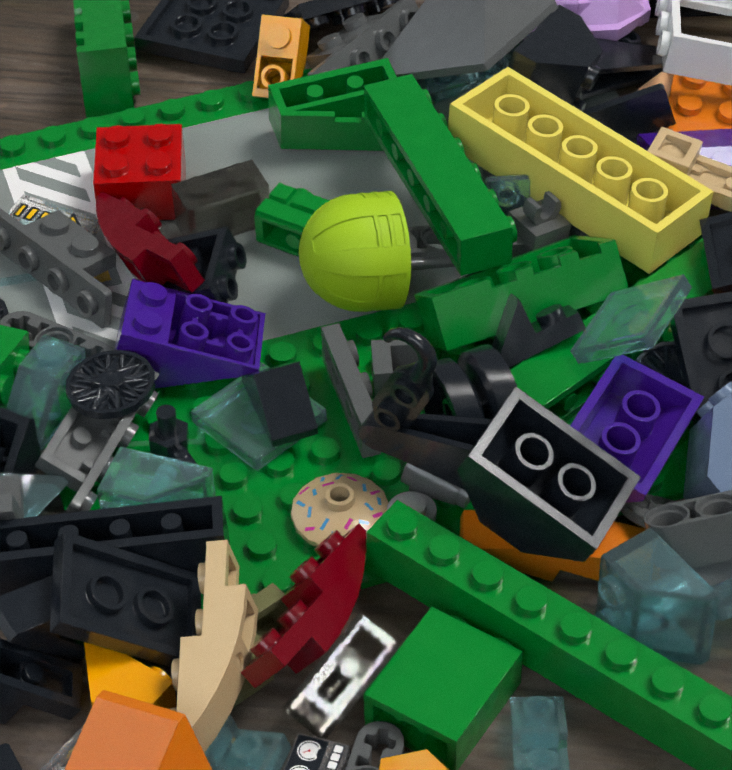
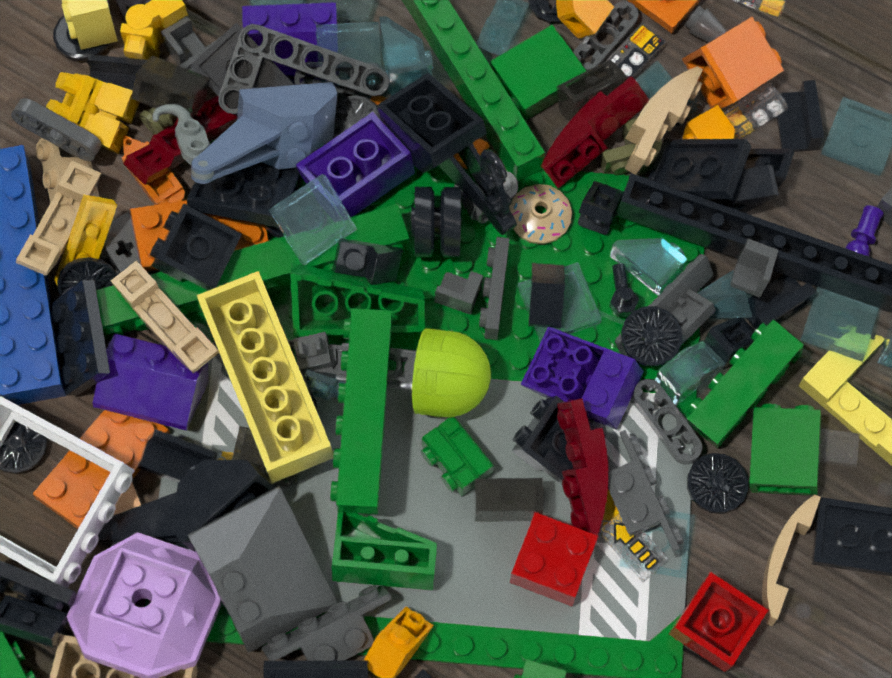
camera: 160 degrees left, 25 degrees up
(255, 524) = (599, 207): none -> black slope

